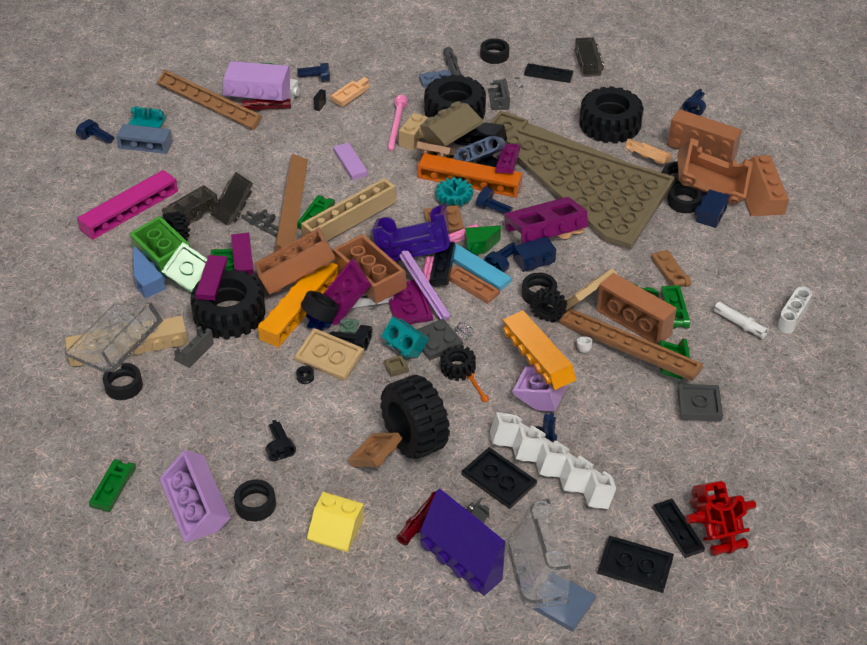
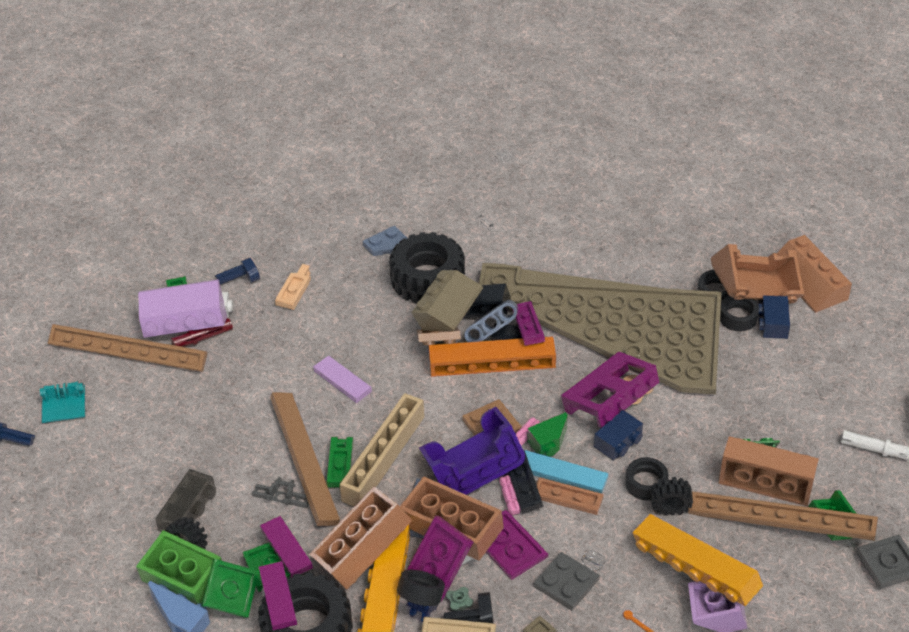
camera: 20 degrees left, 0 degrees up
(127, 204) = (103, 524): dark pink brick -> none
(144, 139) = (76, 426): sand blue brick -> none
(232, 199) = (232, 476): clear smoke brick -> none
(319, 100) = (264, 309): black tile -> none
(400, 103) = (361, 285): bright pink piece -> none
(406, 334) = (535, 586): teal brick -> none
(411, 131) = (399, 319): tan brick -> none
(424, 285) = (519, 517): lavender axle -> none
(451, 61) = (390, 212): dark grey pin -> none
(454, 192) = (486, 383): teal gear -> none
(457, 370) = (608, 615): black tyre -> none
(485, 200) = (526, 384): dark blue piece -> none
(494, 57) = (432, 196): black tyre -> none
(499, 96) = (470, 241): dark grey hinge -> none
(499, 258) = (580, 454): dark blue piece -> none
(548, 73) = (506, 197): black tile -> none
(584, 344) = (732, 531): white hinge -> none
(588, 57) = (541, 165): clear smoke brick -> none
(588, 289) = (705, 461): tan tile -> none
(611, 114) = (605, 248): black tyre -> none
(648, 151) = (669, 266): light nougat hinge -> none
(670, 269) = (770, 406): medium nougat plate -> none
(674, 296) = (794, 441): green plate -> none
(692, 103) = (683, 191): dark blue piece -> none
(715, 137) = (713, 229): nougat brick -> none

